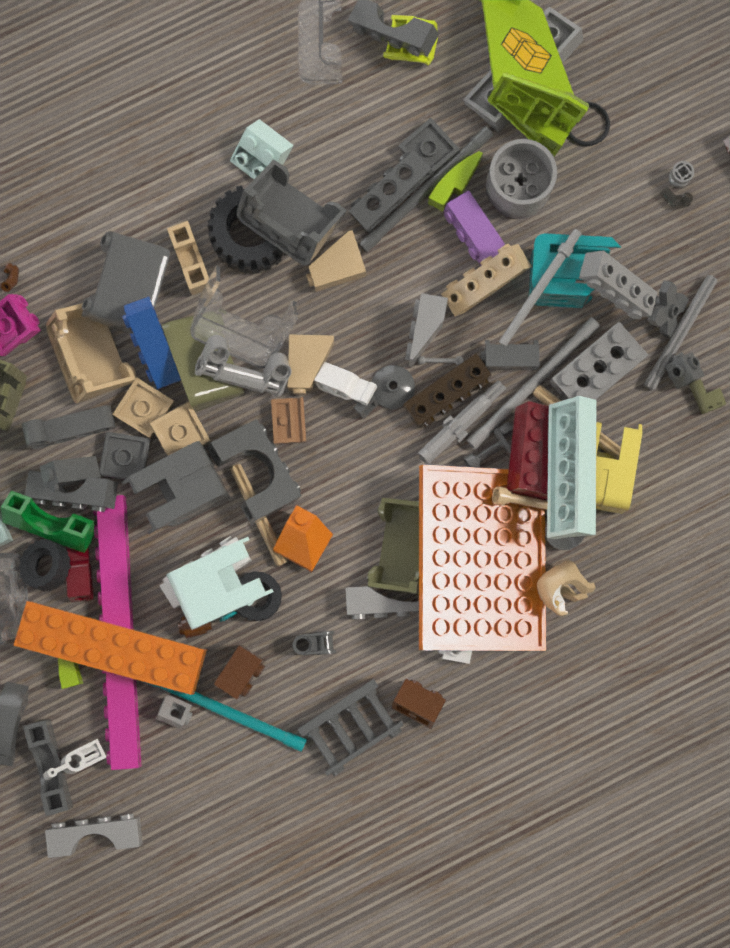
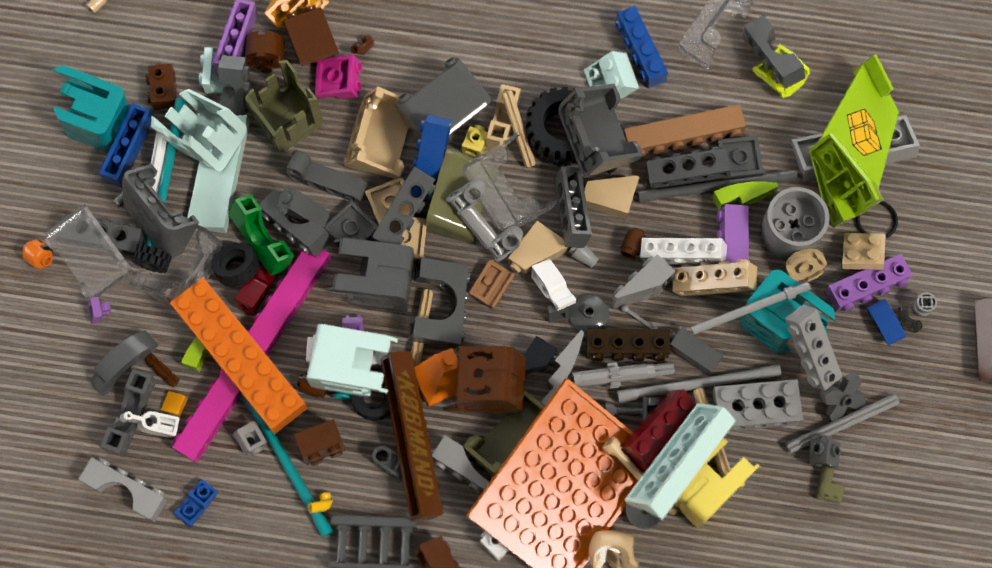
camera: 35 degrees right, 10 degrees down
(48, 706) = (162, 370): none -> reddish brown axle
(82, 728) = (174, 403): none -> light orange slope
(153, 374) = (415, 178): none -> dark grey brick
(167, 801) = (196, 503): none -> blue slope
(184, 303) = (475, 147): none -> light yellow brick
(192, 546) = (354, 323): none -> medium lavender tile
(211, 259) = (517, 126): none -> tan axle
(268, 103) = (641, 47): none -> blue brick
(282, 723) = (322, 505): none -> yellow arm
(313, 300) = (572, 207): none -> dark grey brick
(317, 610) = (411, 436): none -> reddish brown brick
(349, 335) = (584, 255): none -> light grey cone
(364, 155) = (688, 130): none -> medium nougat brick
(365, 508) = (501, 375): none -> reddish brown piece
(376, 459) = (539, 356): none -> black slope
(388, 295) = (632, 243): none -> reddish brown brick
(405, 447) = (565, 364): none -> light grey slope
(440, 272) = (684, 250): none -> white brick
(555, 210) = (806, 265): none -> tan tile
(597, 162) = (864, 251): none -> tan plate
(620, 188) = (868, 283): none -> medium lavender brick
(658, 213) = (886, 322): none -> blue slope

